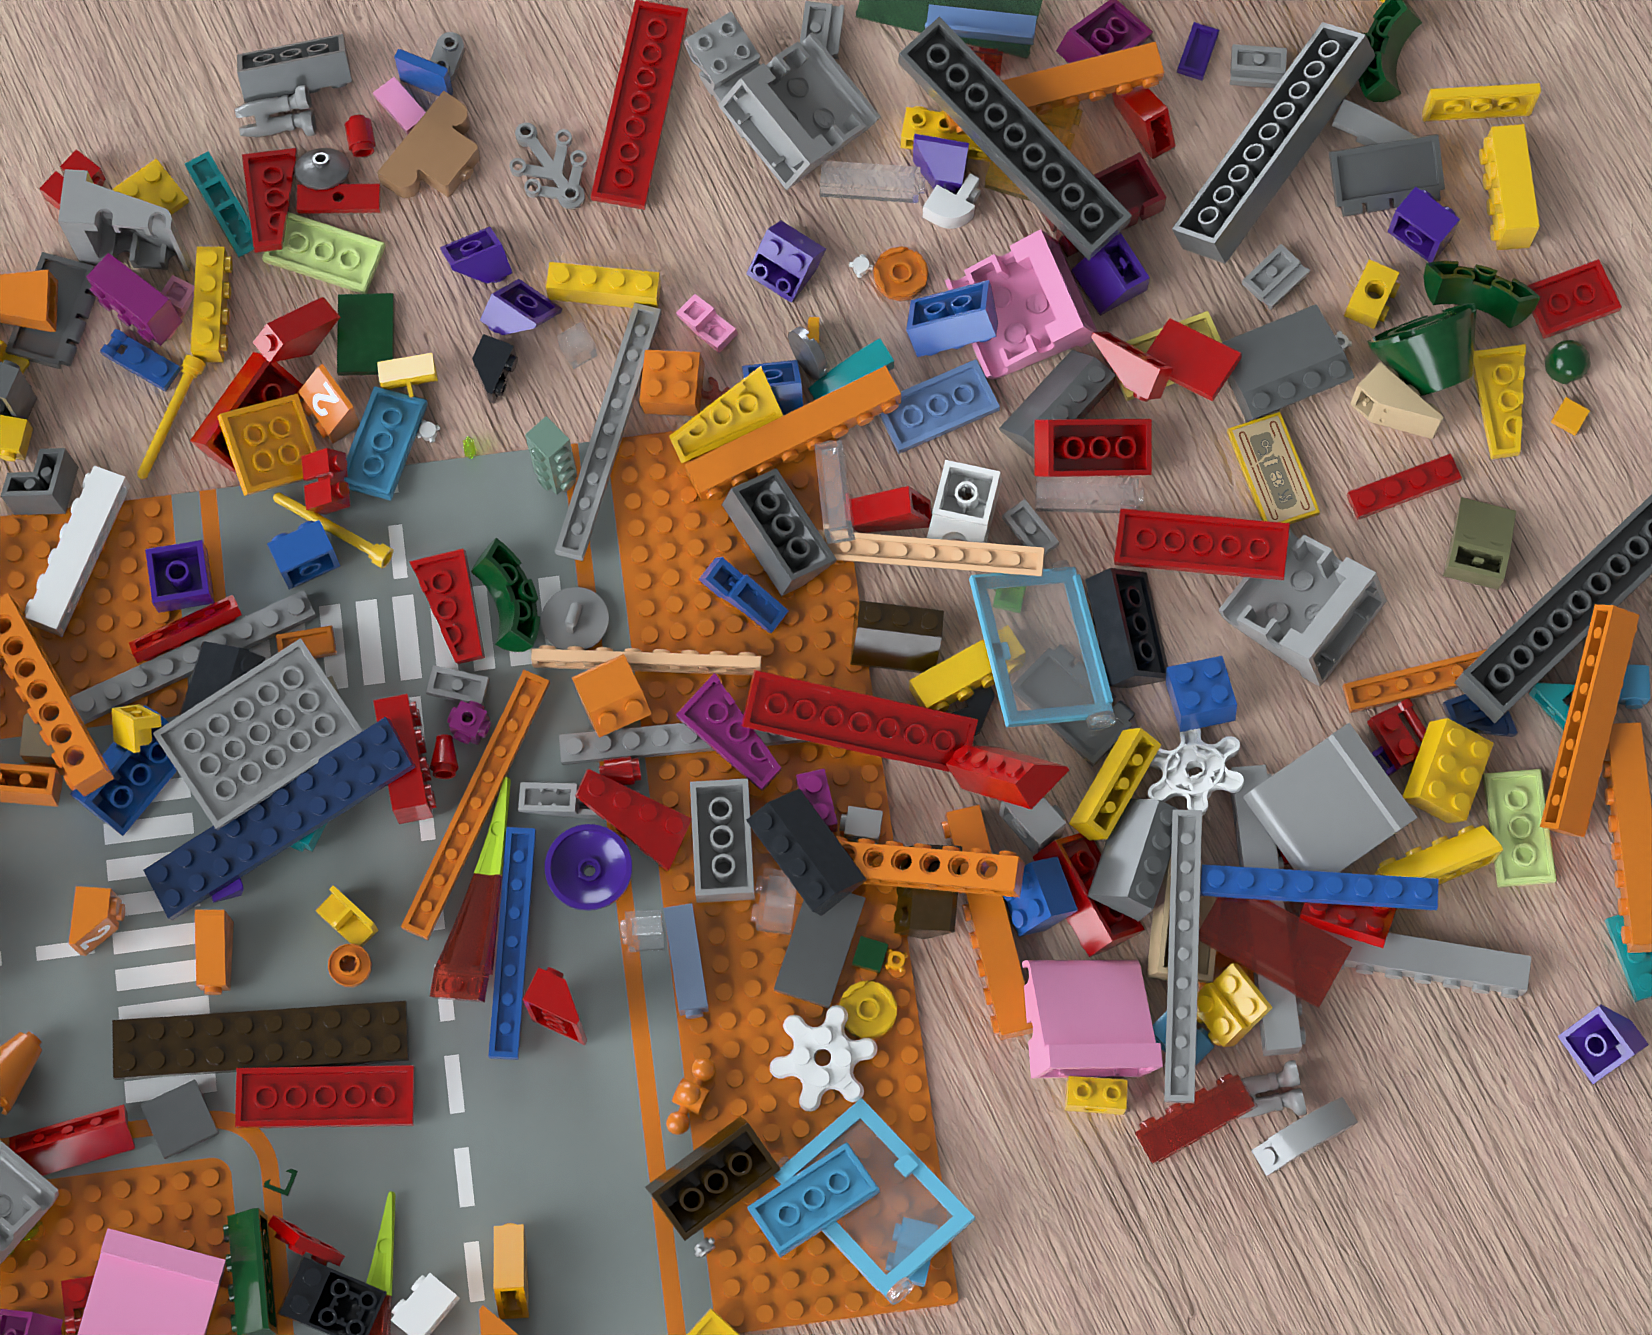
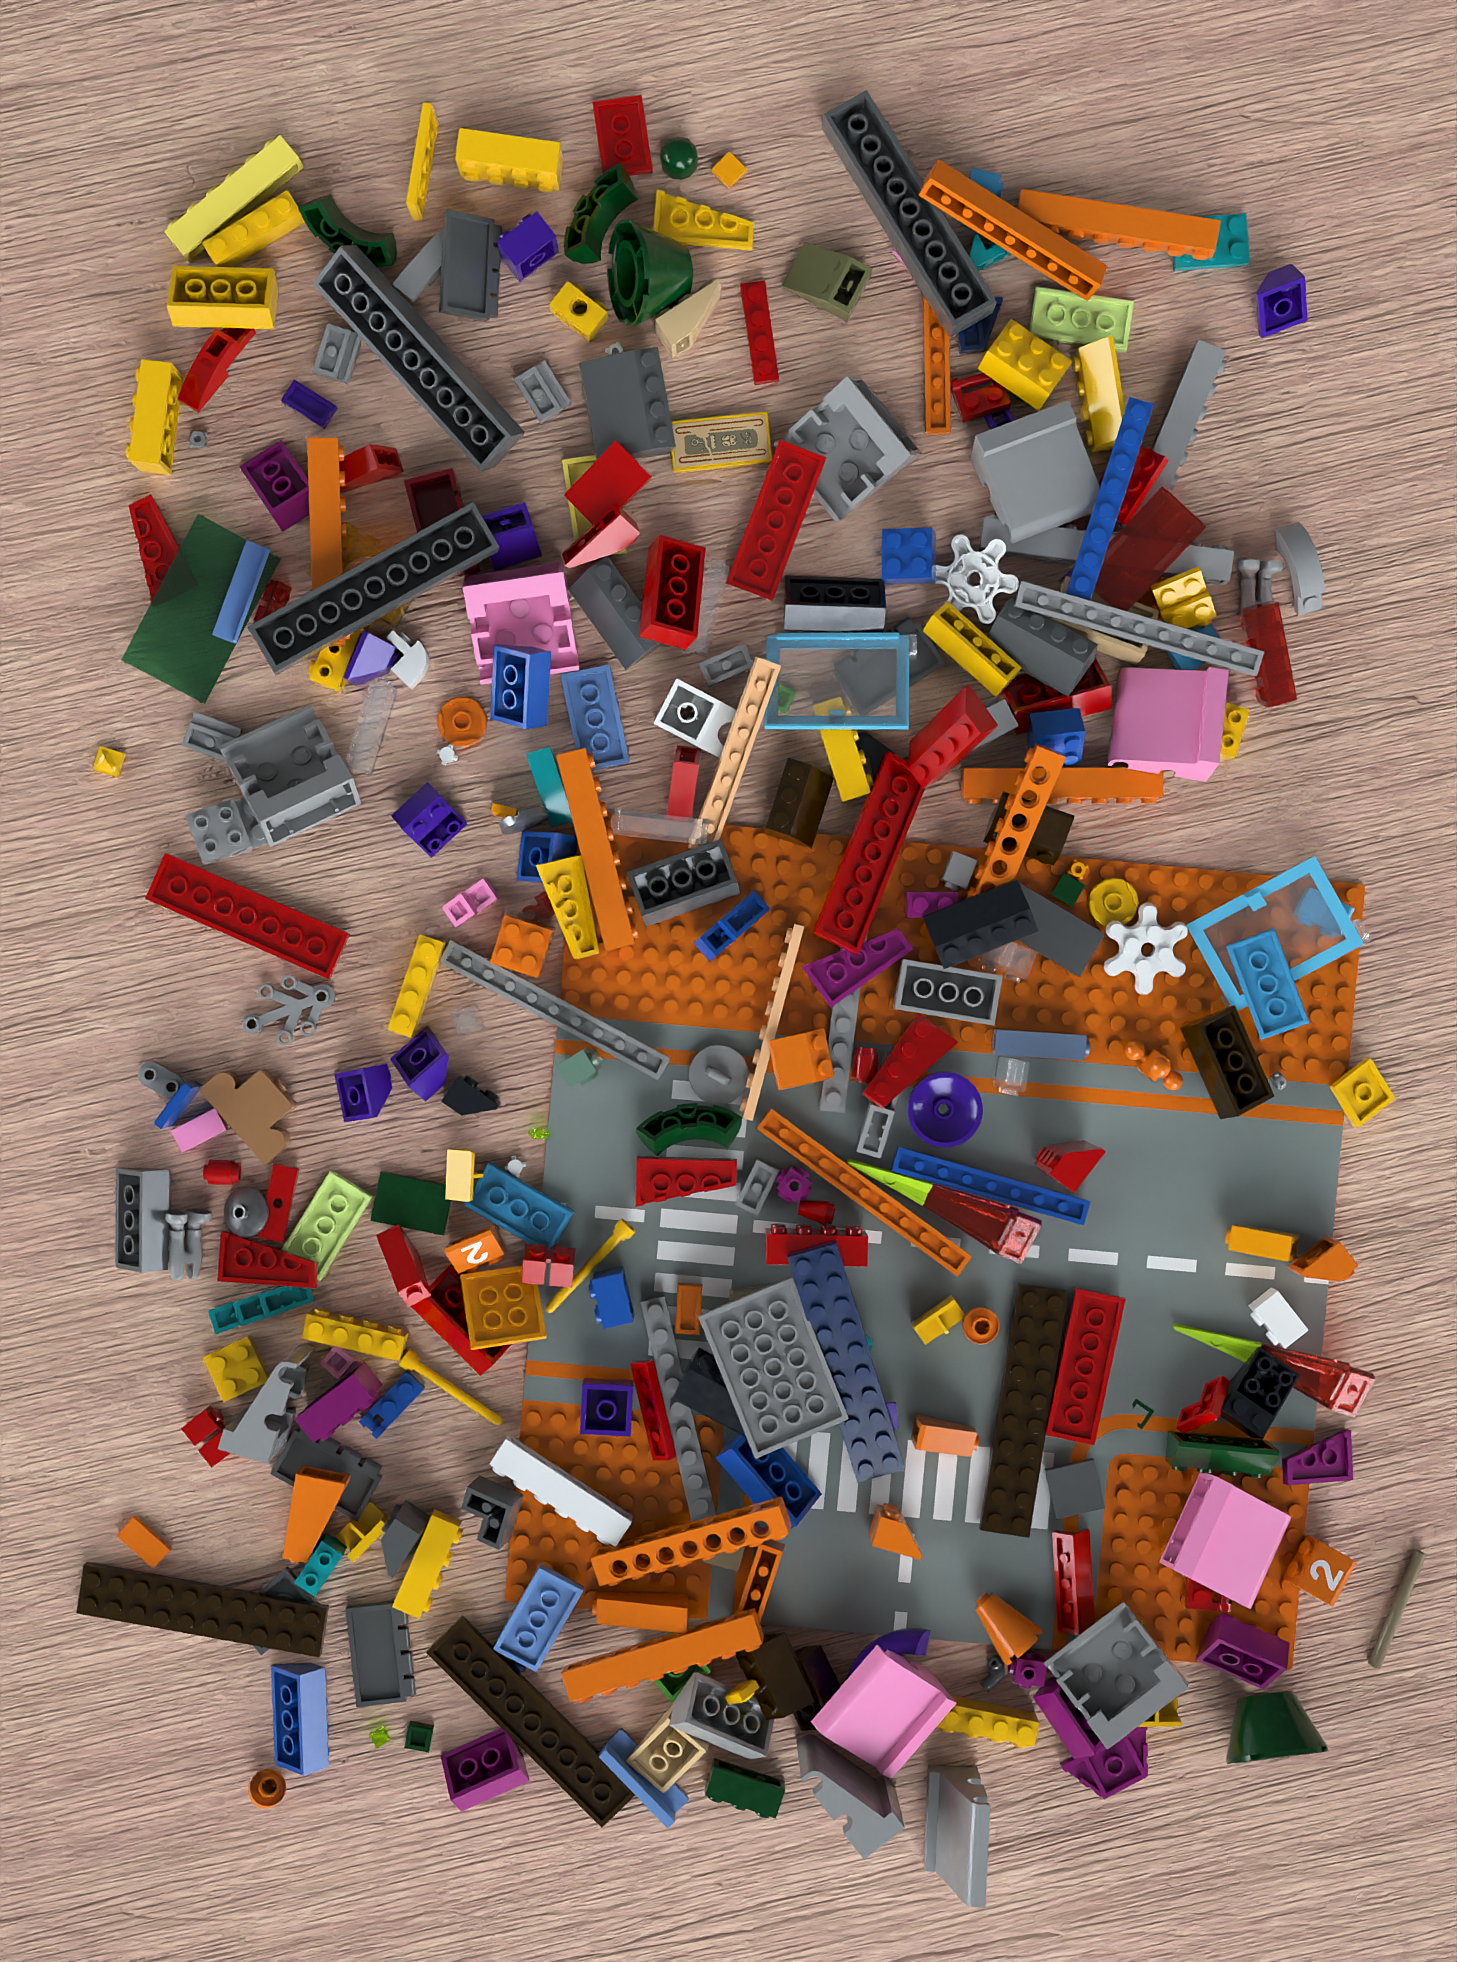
camera: 75 degrees left, 15 degrees up
(134, 726) = (739, 1471): yellow panel -> none

